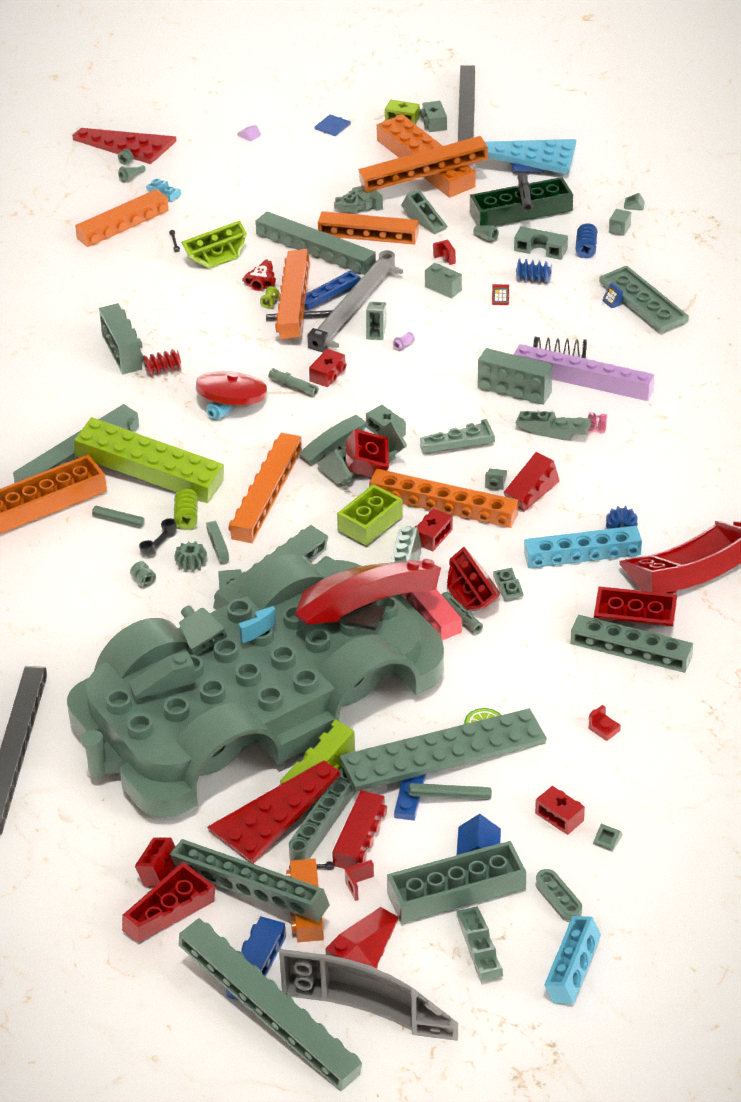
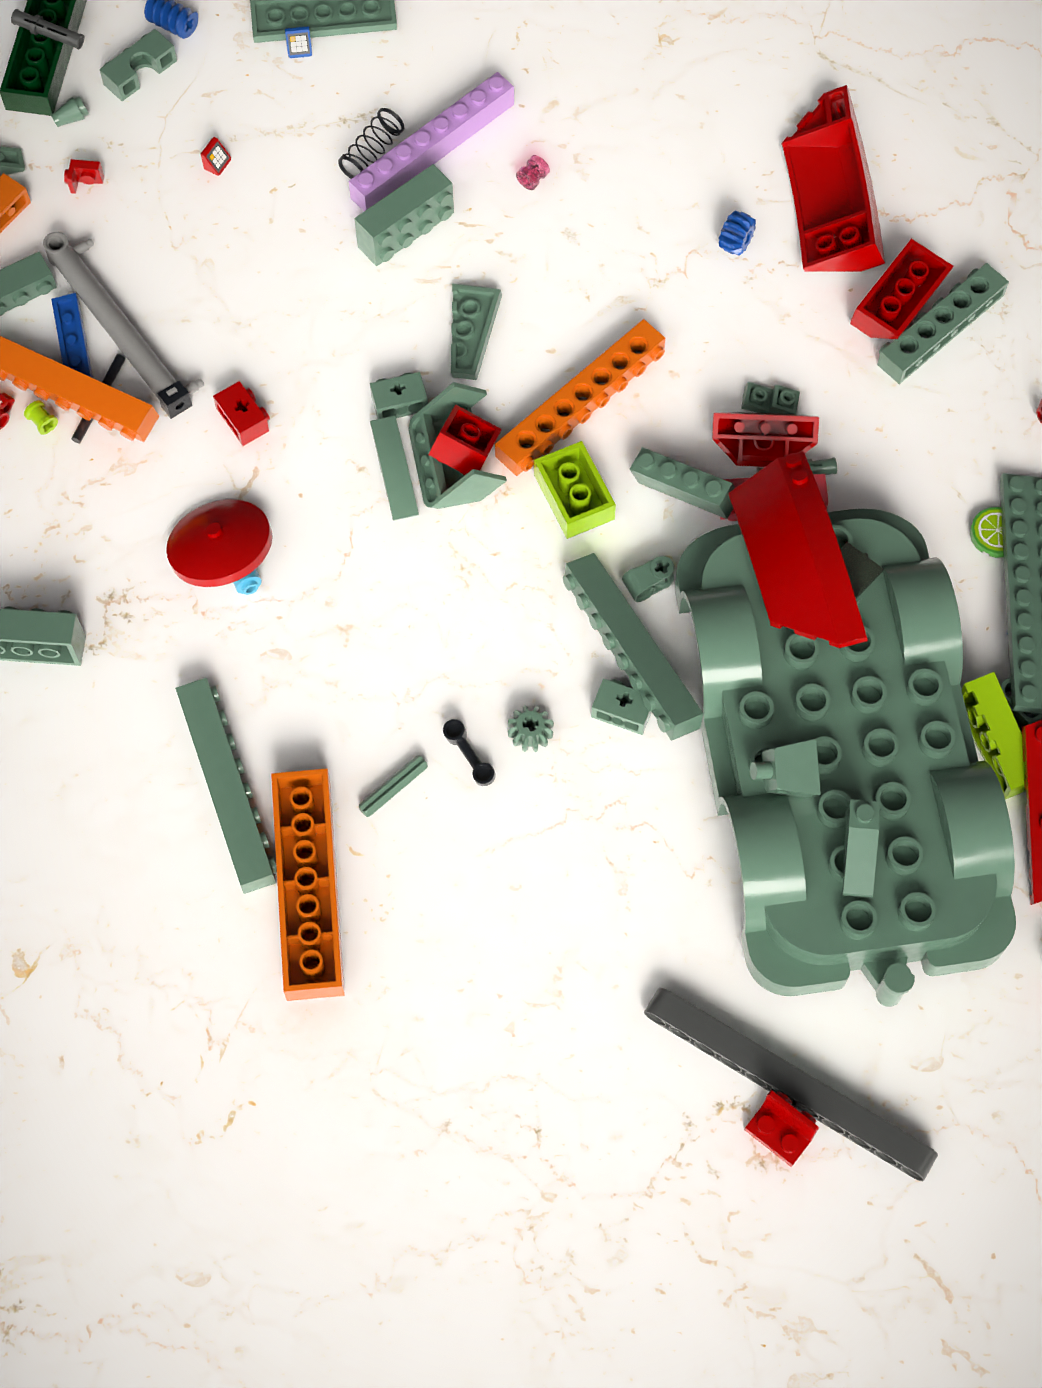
camera: 65 degrees left, 25 degrees up
(141, 572) = (534, 799): sand green wheel -> none
(148, 459) = (319, 703): lime brick -> none
(162, 362) = (102, 604): red piece -> none
(186, 509) = (434, 698): lime piece -> none
(217, 541) = (517, 685): sand green beam -> none
(255, 627) = (816, 693): medium azure slope -> none
(265, 488) = (444, 585): orange brick -> none
(296, 383) = (233, 469): sand green pin -> none
(376, 315) = (182, 313): sand green torso -> none
(400, 342) = (239, 309): lavender pin -> none
(434, 529) = (632, 432): red brick -> none
(443, 280) = (145, 204): sand green brick -> none
(495, 479) = (570, 325): sand green bracket -> none
(533, 481) = (614, 290): red wedge -> none
(534, 271) = (192, 97): blue piece -> none
(547, 425) = (513, 220): sand green slope -> none
(582, 546) = (739, 349): medium azure brick -> none

